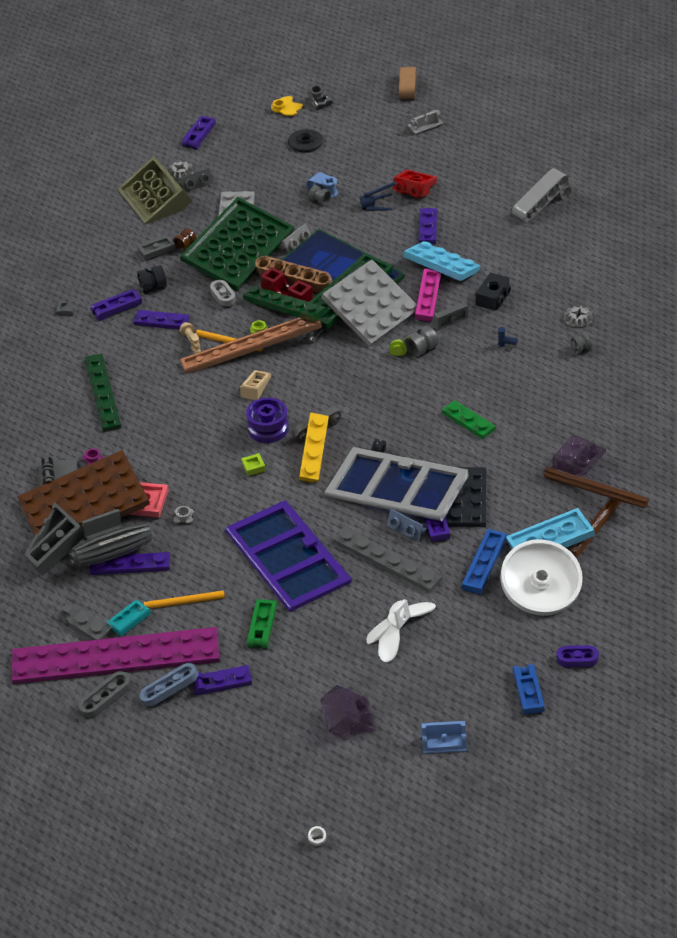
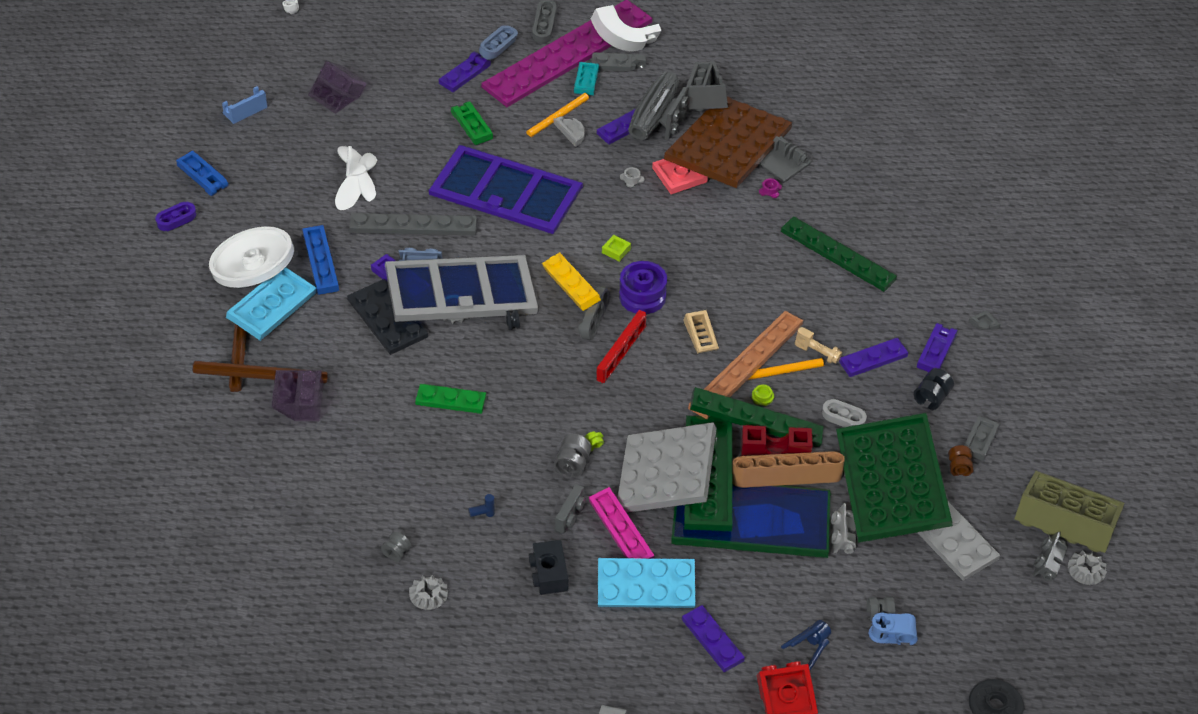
camera: 140 degrees right, 5 degrees up
(56, 627) = (619, 34): none -> white arch
(188, 576) = (571, 129): none -> light grey plate
(198, 132) = (1135, 639): dark purple plate -> none
(321, 393) = (621, 346): none -> red tile

